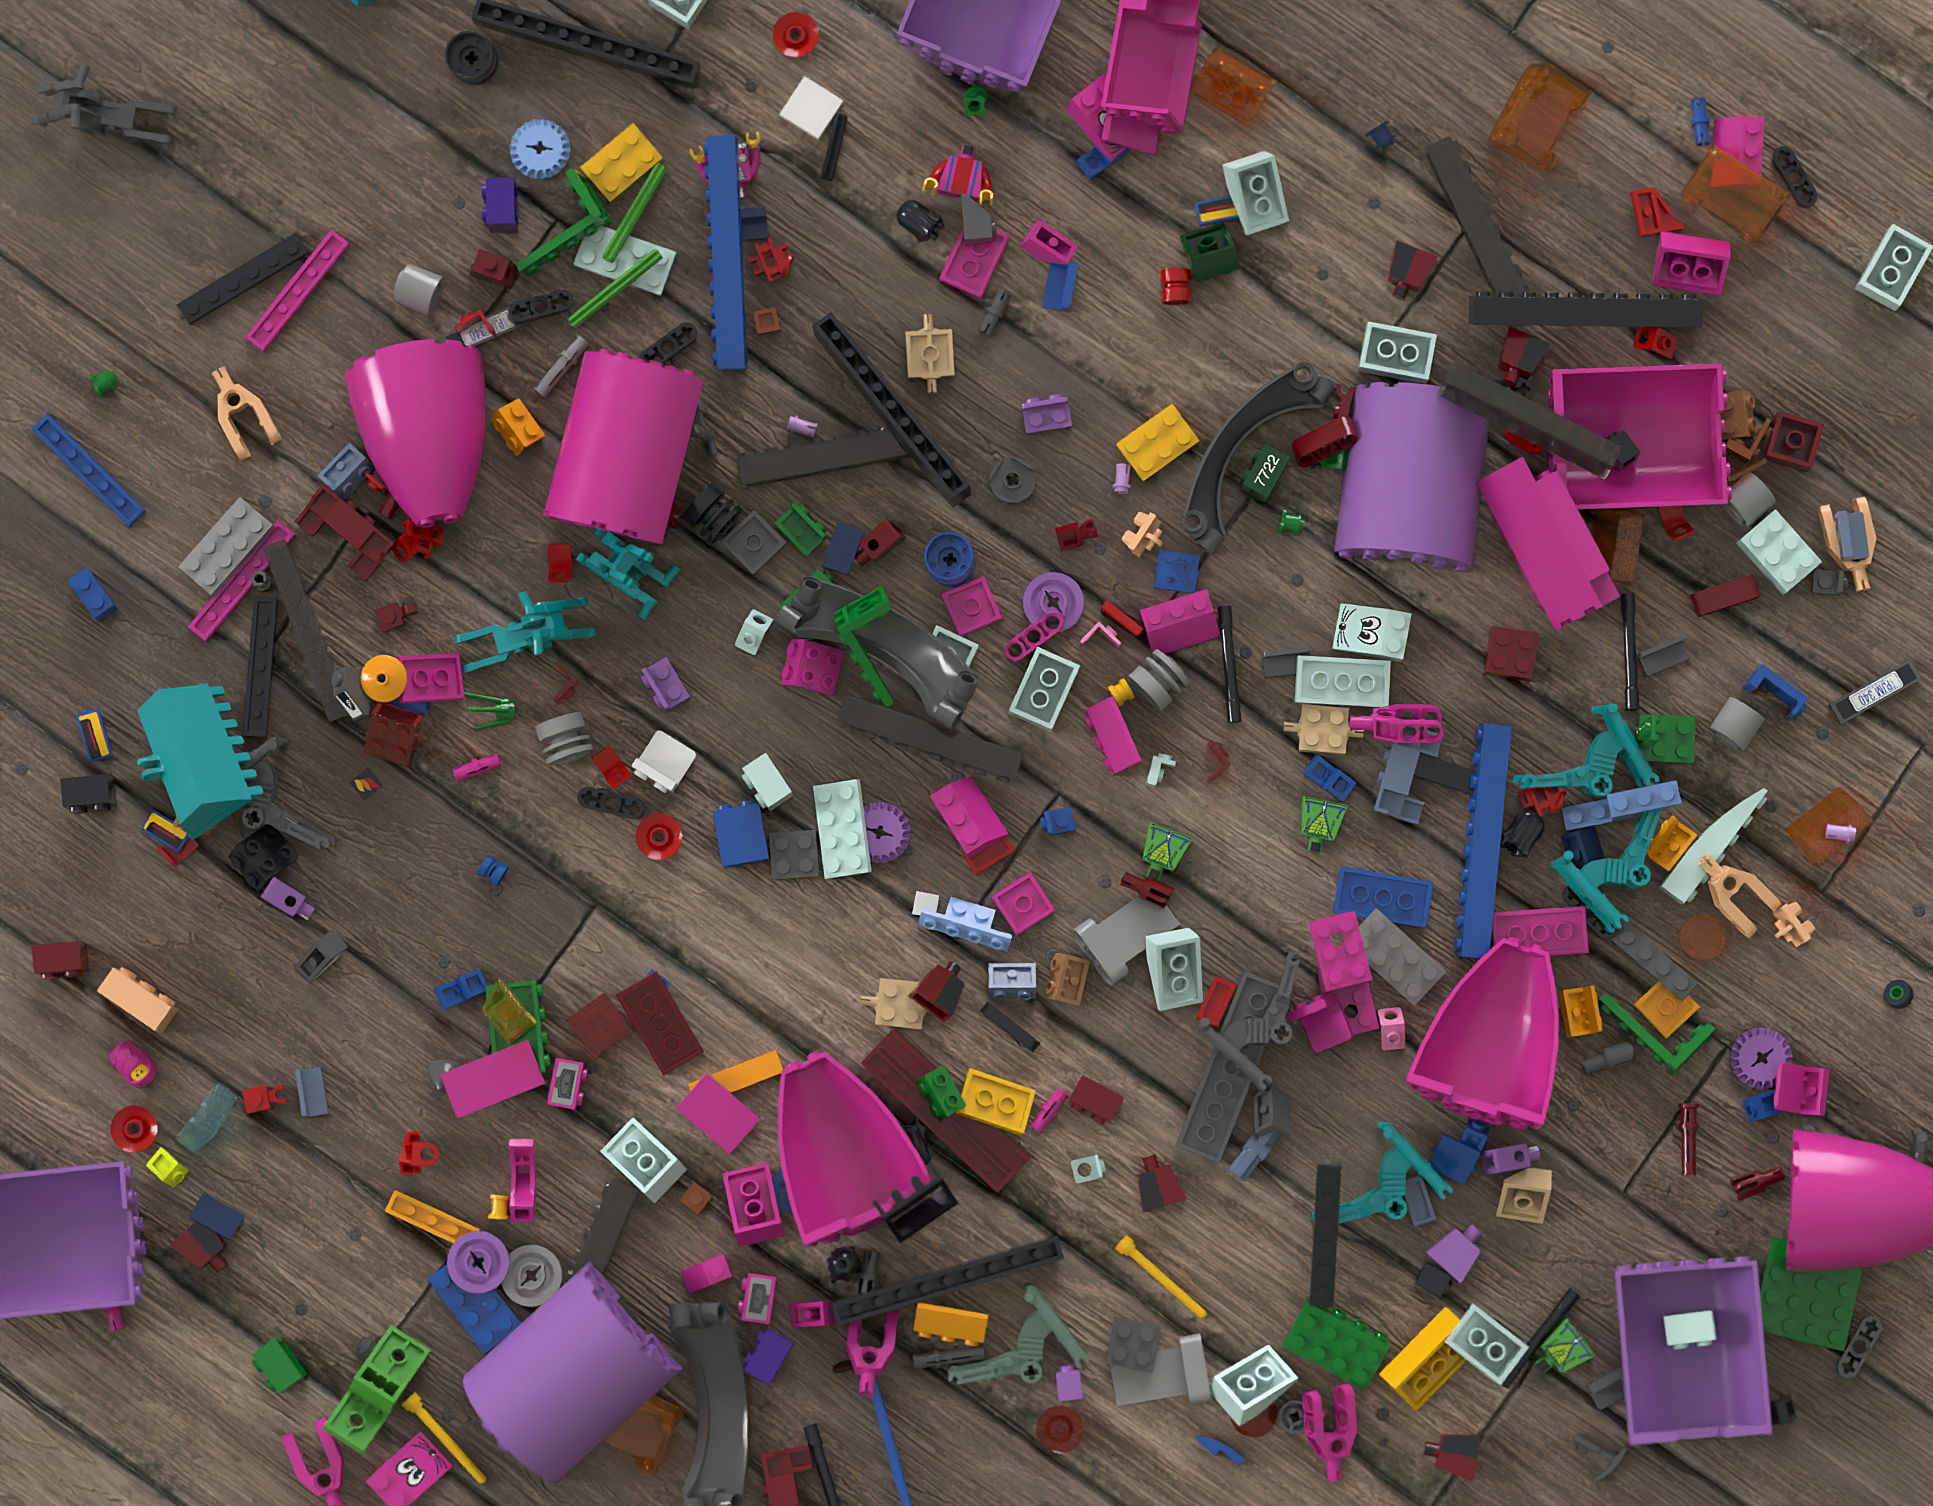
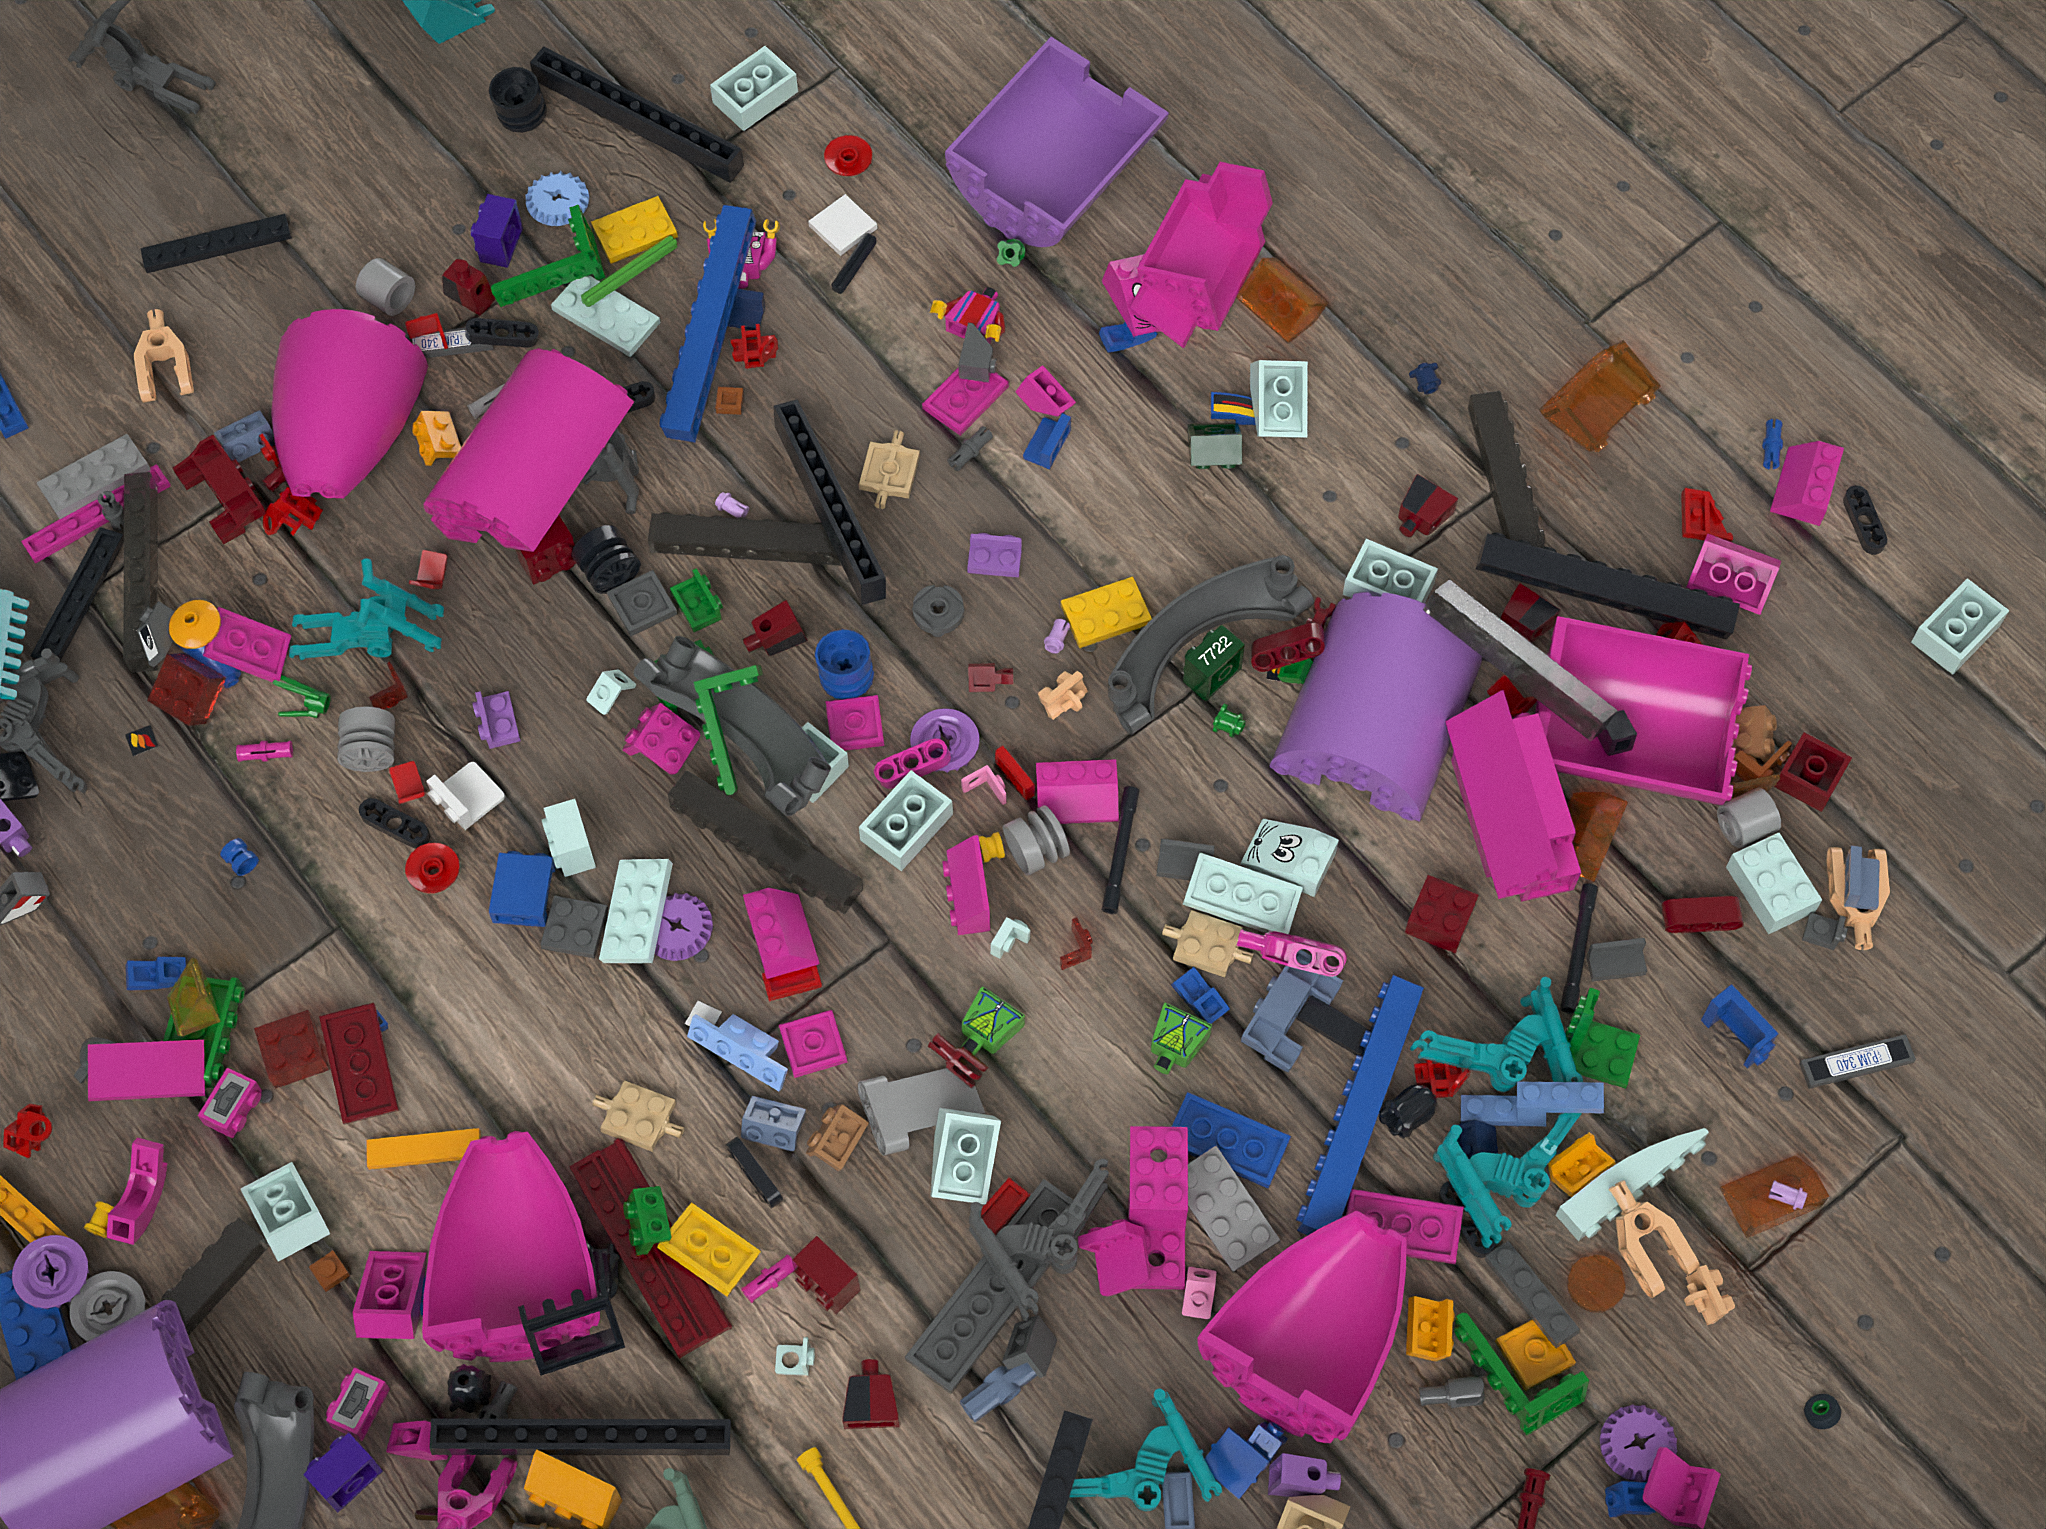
camera: 15 degrees right, 20 degrees down
(104, 382) = (37, 298): green brick -> none
(297, 291) = (265, 266): dark pink tile -> none
(392, 616) = (237, 582): dark red plate -> none
(615, 288) = (592, 328): bright green axle -> none
(626, 568) = (496, 585): teal piece -> none
(706, 1273) = (310, 1358): dark pink slope -> none
(718, 1113) = (388, 1180): dark pink tile -> none
(842, 549) = (731, 628): dark blue panel -> none
(919, 220) = (919, 344): black piece -> none
(939, 991) = (684, 1107): dark red torso -> none
(1058, 821) = (879, 965): blue bracket -> none
(1175, 285) = (1168, 465): red wheel -> none
(1177, 571) = (1089, 741): blue piece -> none
(1675, 521) = (1660, 819): red bracket -> none
(1735, 193) = (1800, 511): clear orange windscreen -> none
(1736, 724) = (1687, 1051): light grey piece -> none

